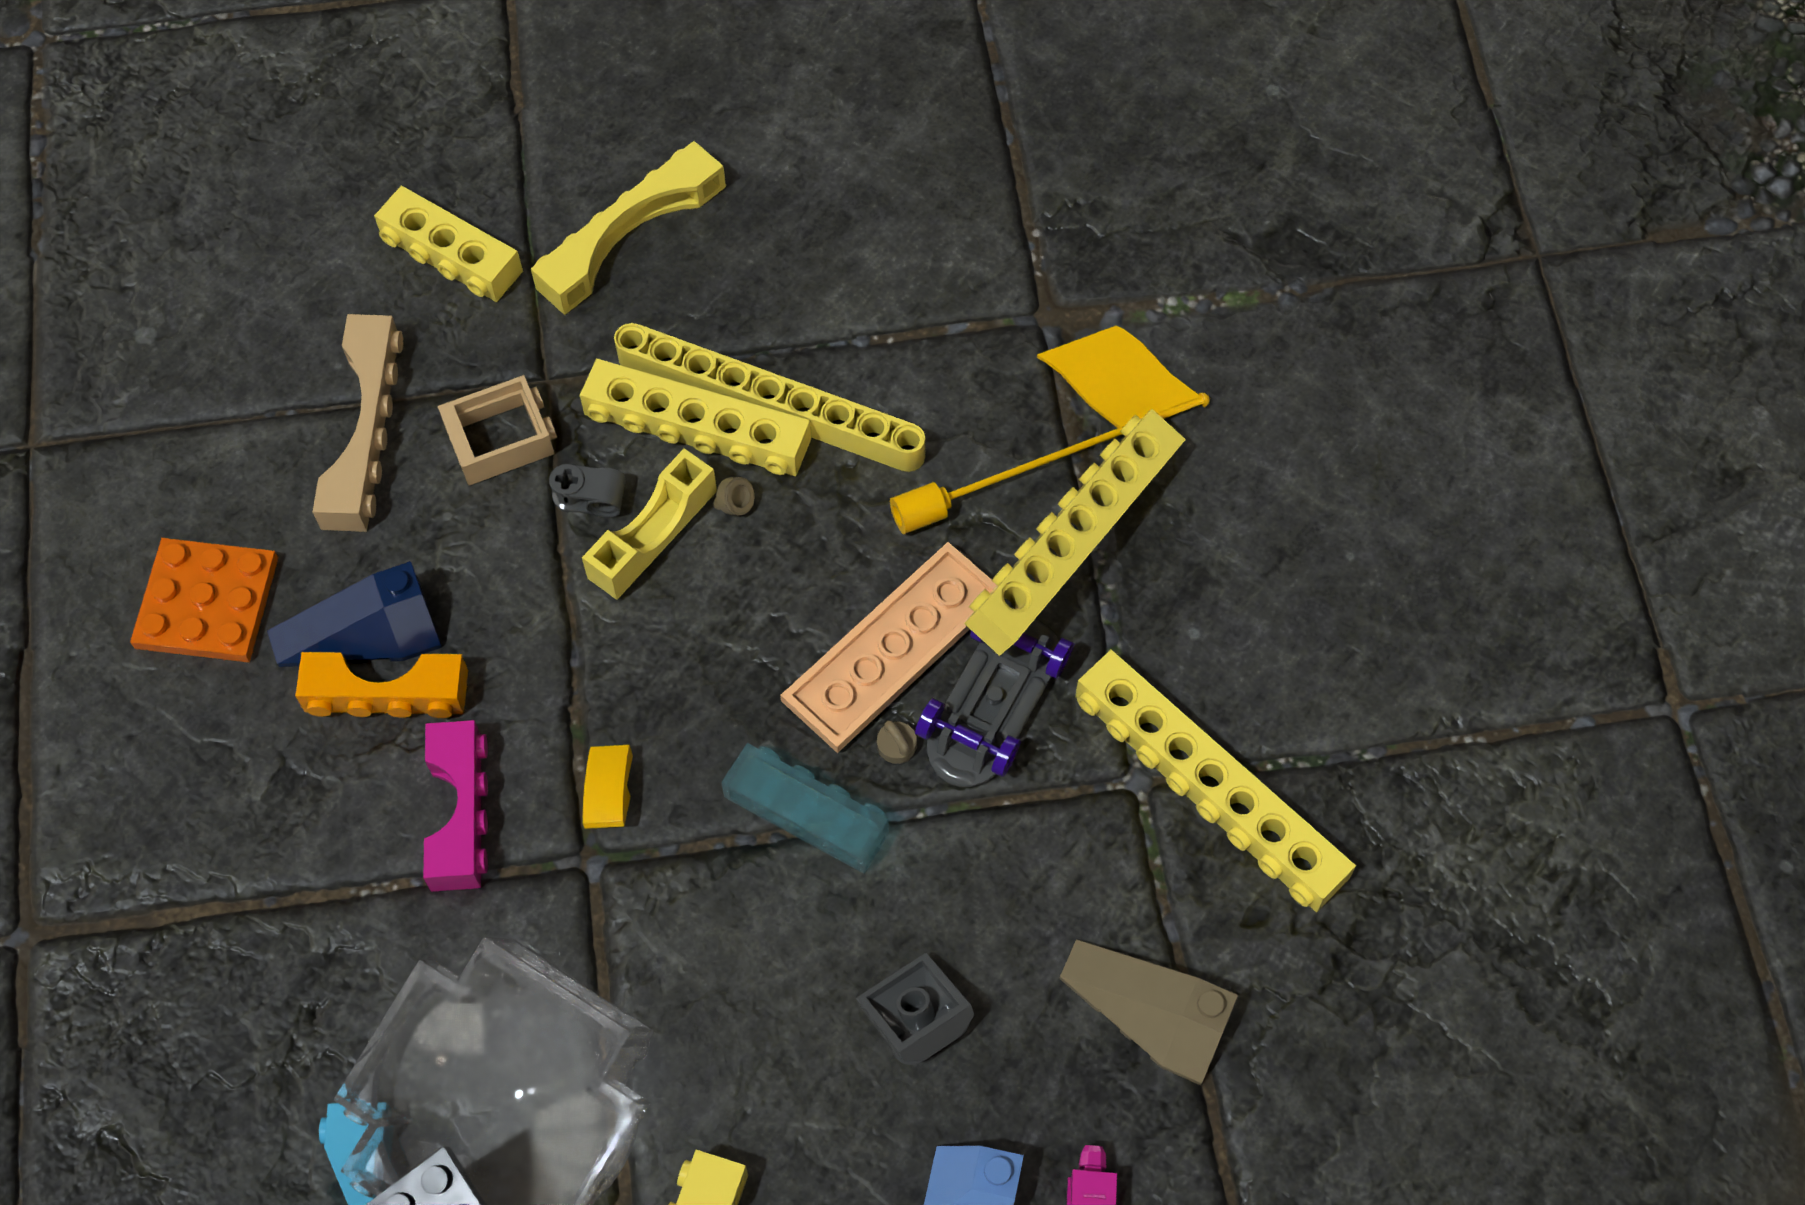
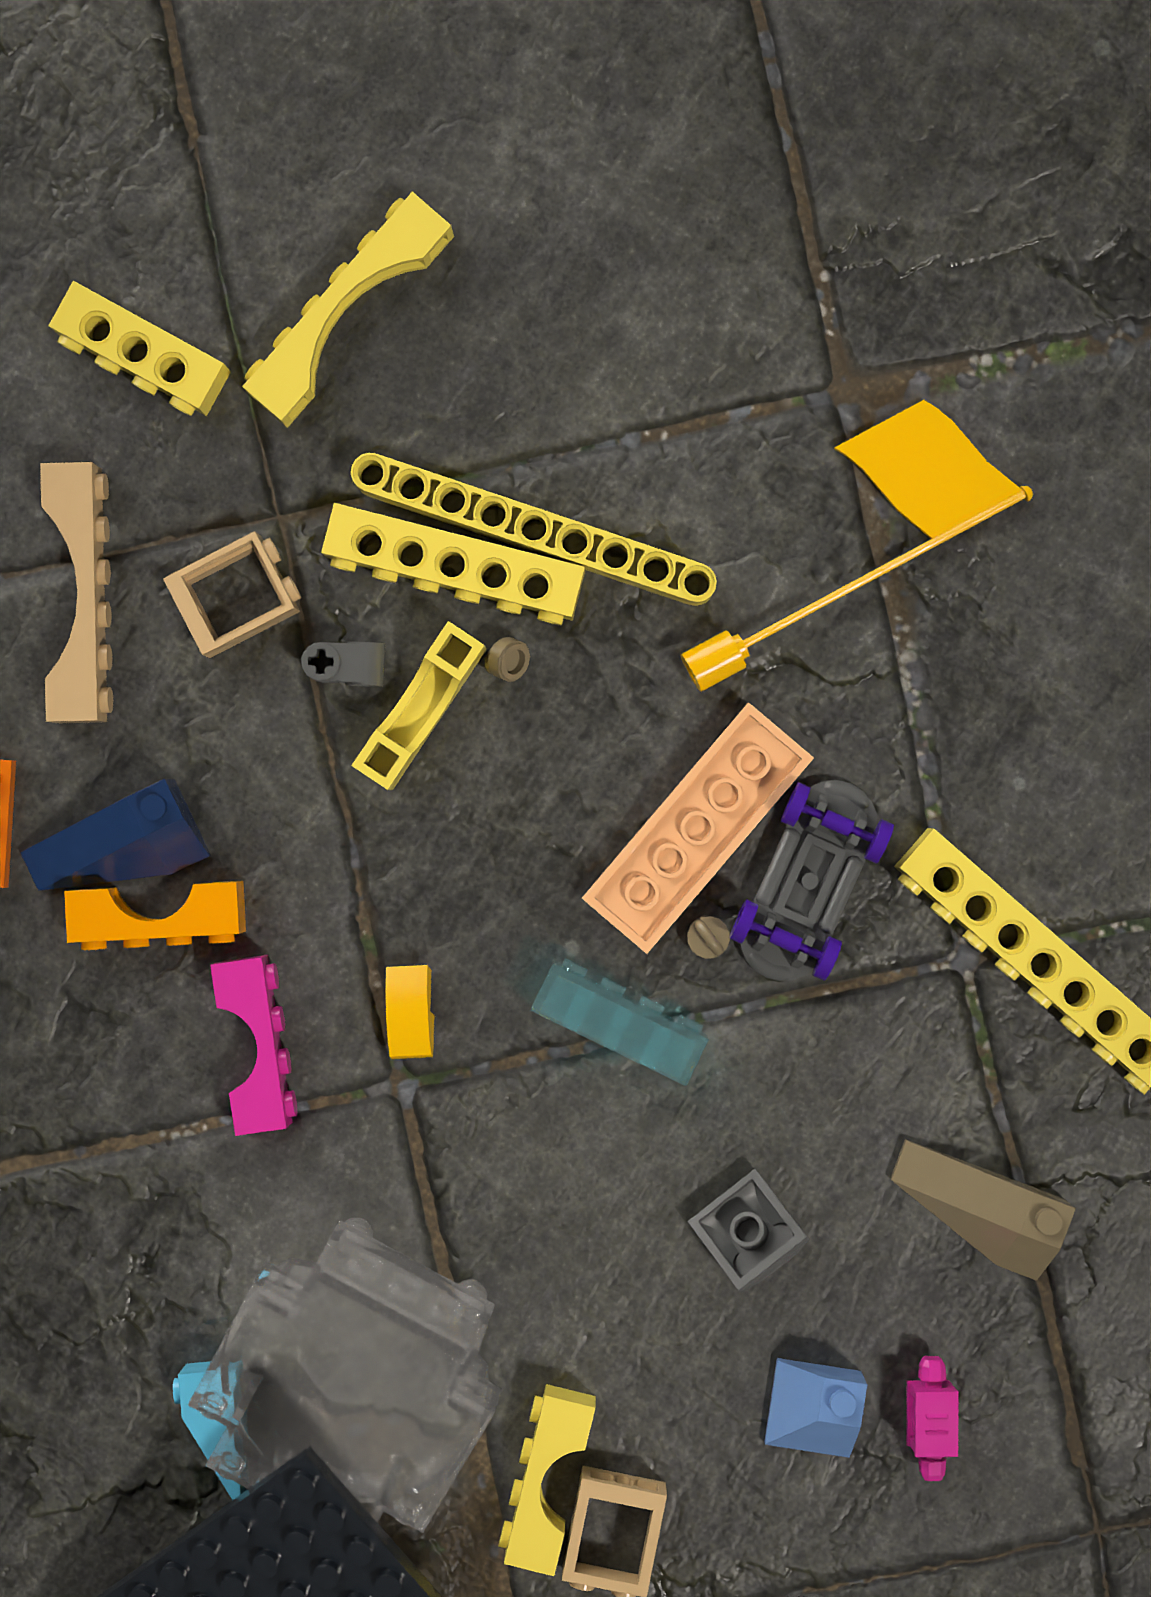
camera: 10 degrees left, 25 degrees up
(1000, 624) = (977, 573): light yellow brick -> none

